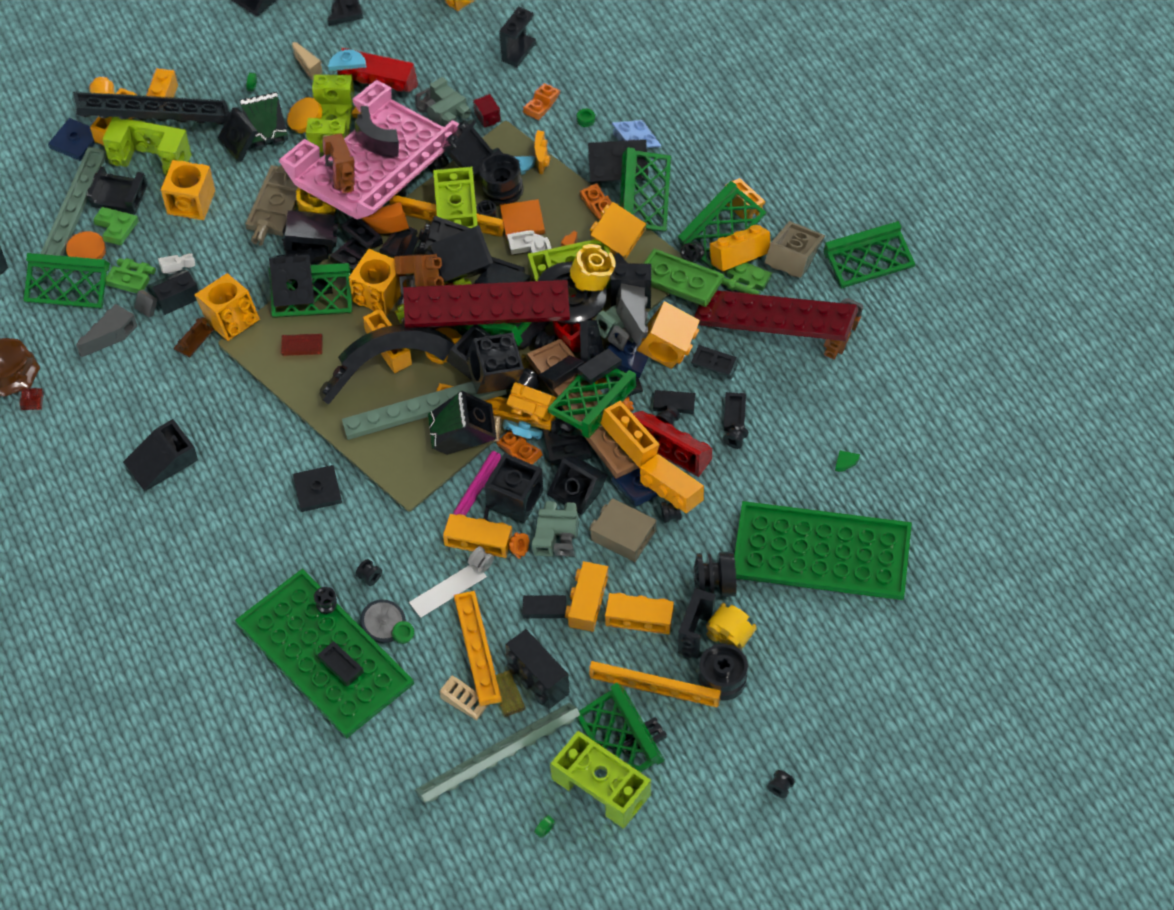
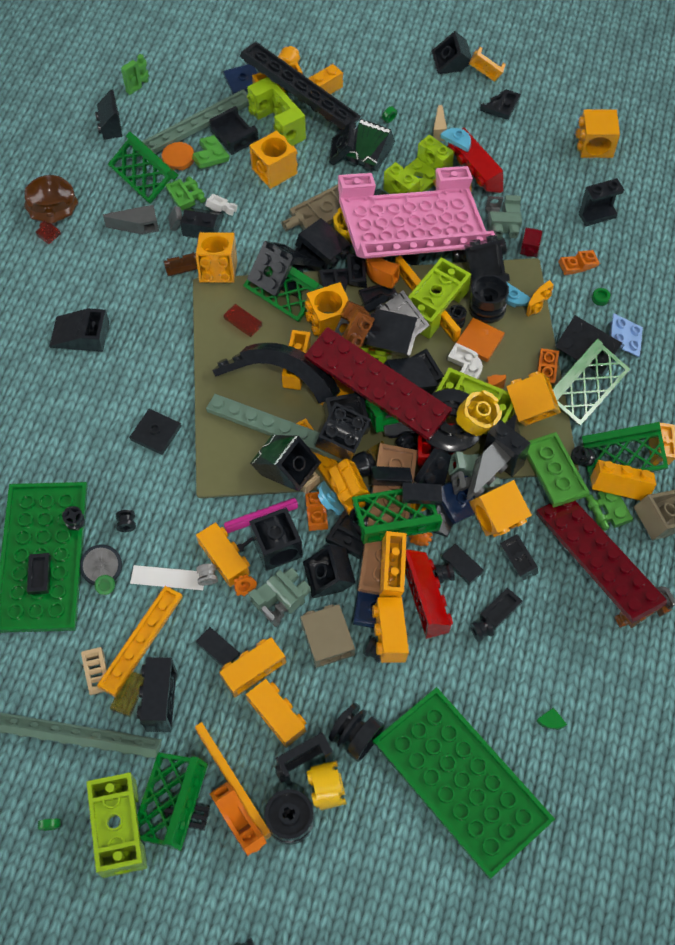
camera: 40 degrees right, 5 degrees up
(300, 113) = (405, 157): light orange tile -> none
(342, 162) = (377, 205): dark orange hips -> none
(374, 138) = (424, 208): black arch -> none
(686, 706) = (237, 819): none -> orange arch

